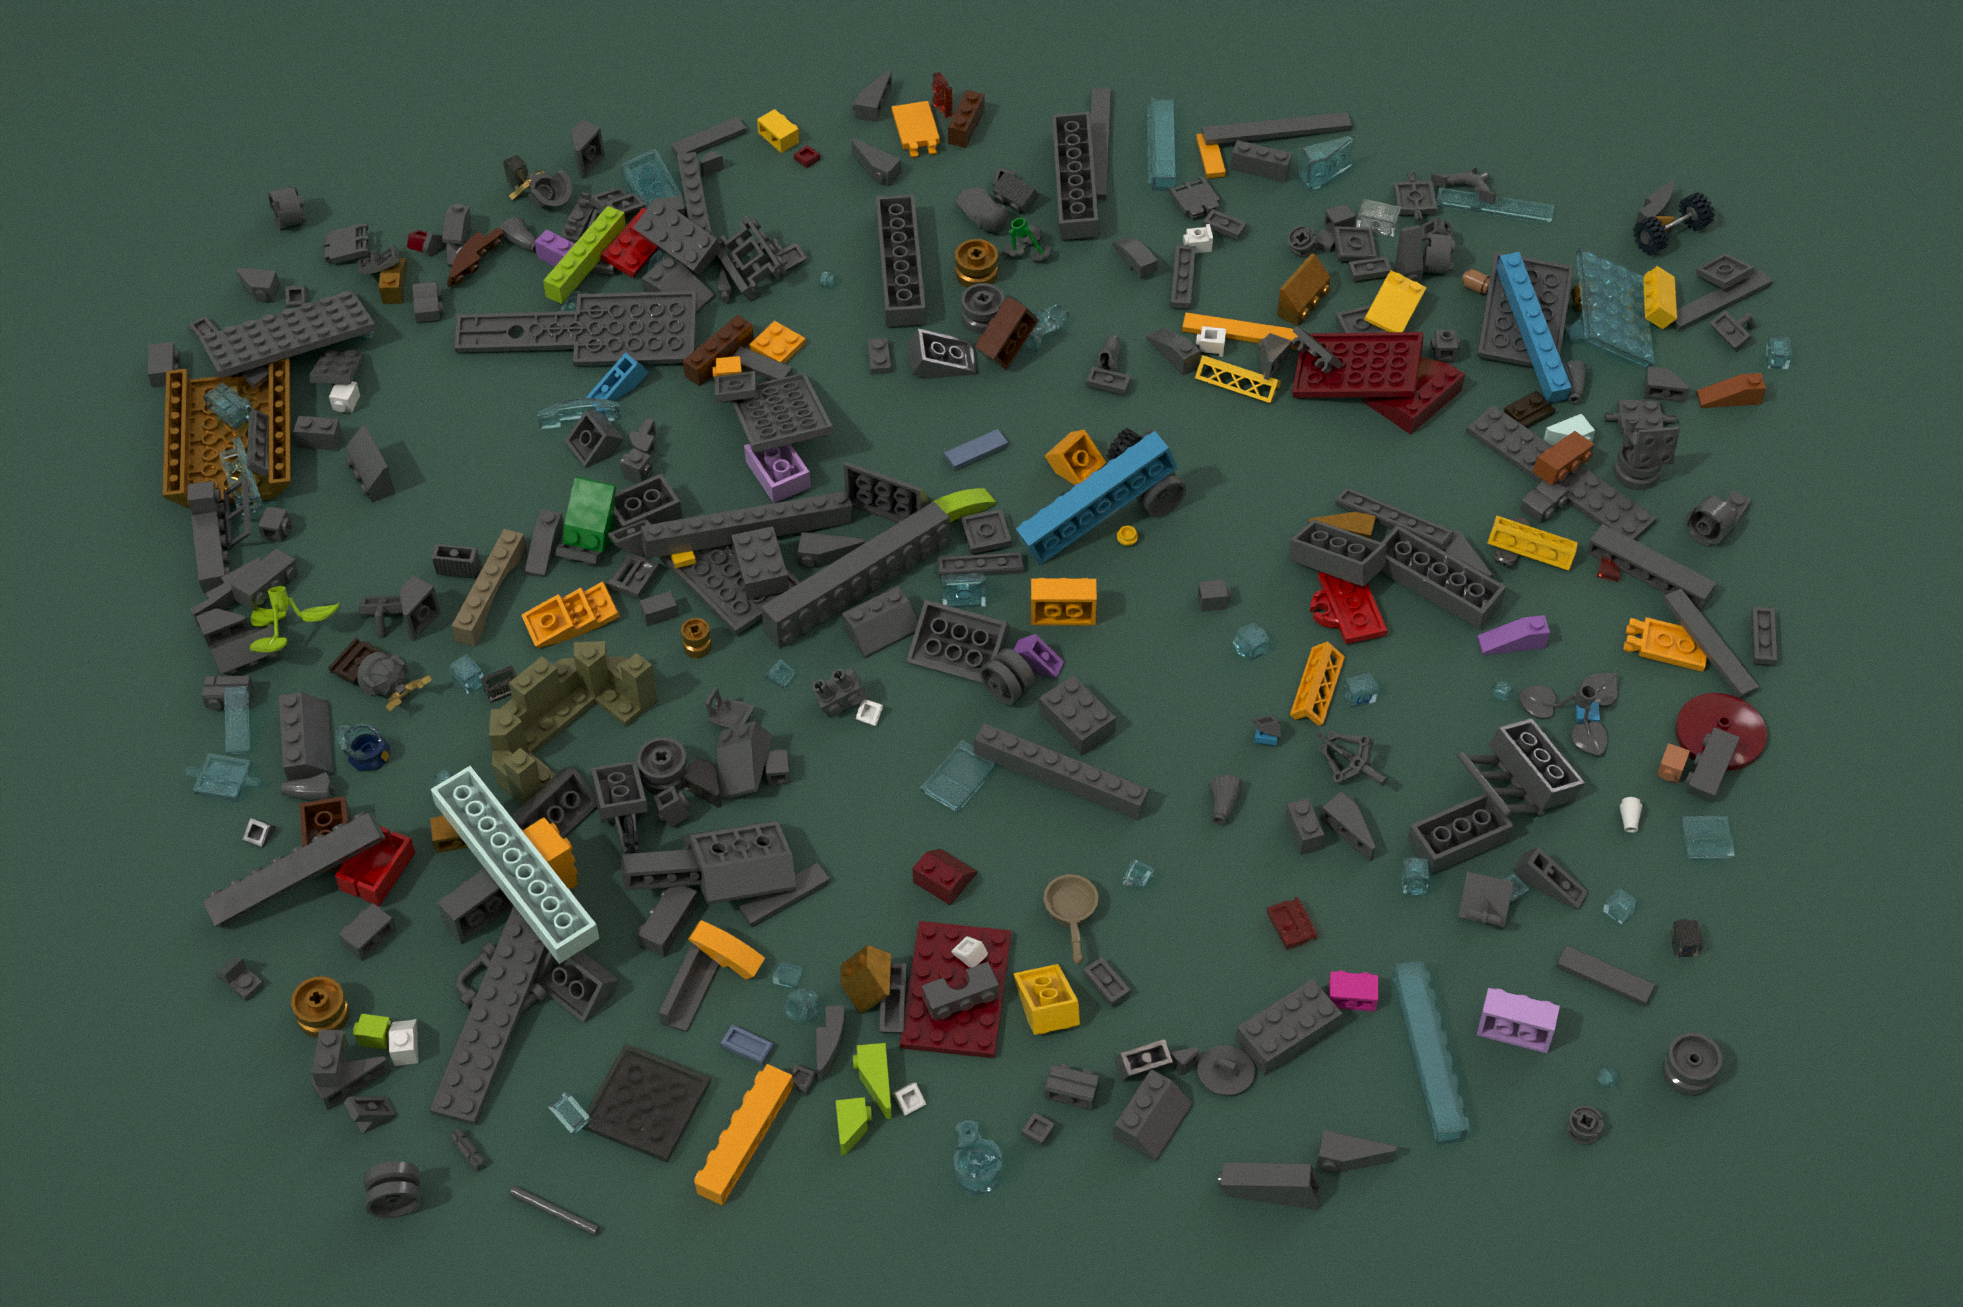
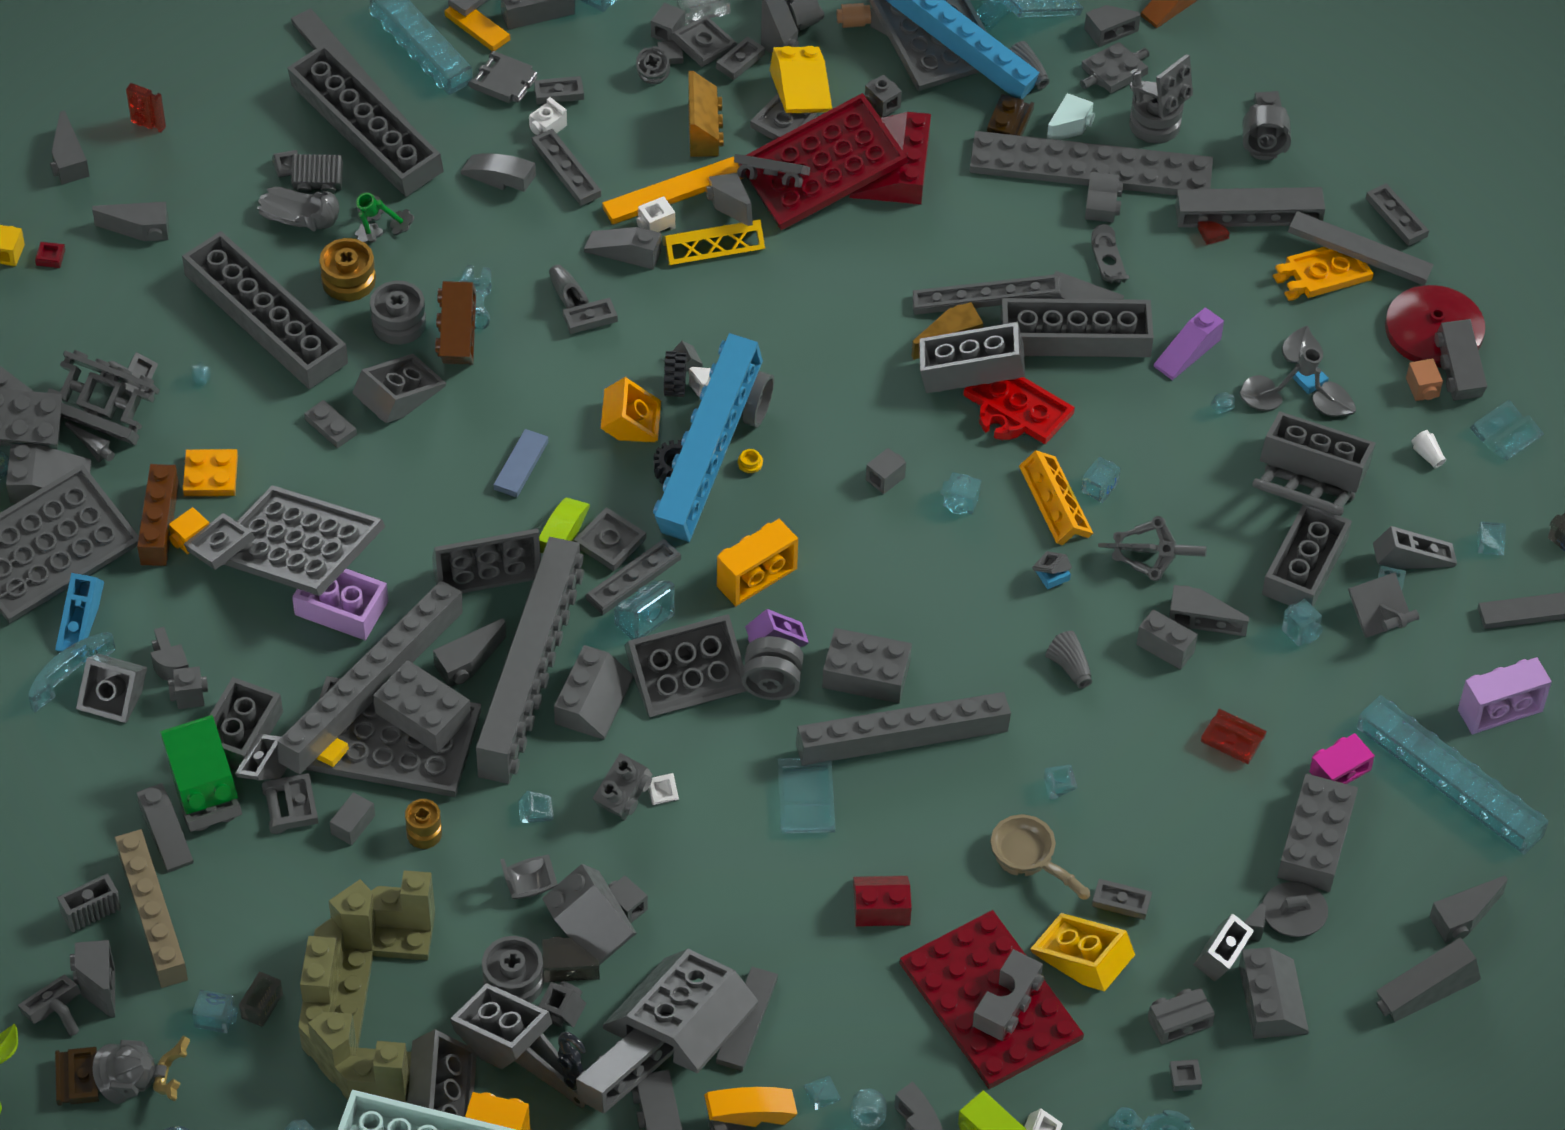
camera: 40 degrees left, 0 degrees up
(570, 616) = (264, 883): light orange slope -> none
(762, 365) = (214, 504): dark grey tile -> none
(866, 977) = (911, 1041): pearl gold slope -> none
(893, 1006) = (944, 1045): dark grey slope -> none
(916, 127) = (141, 159): light orange tile -> none
(966, 118) = (191, 120): reddish brown brick -> none
(970, 951) = (978, 953): white slope -> none
(1532, 543) = (1129, 244): yellow fence -> none
(1563, 458) = (1092, 145): dark orange brick -> none

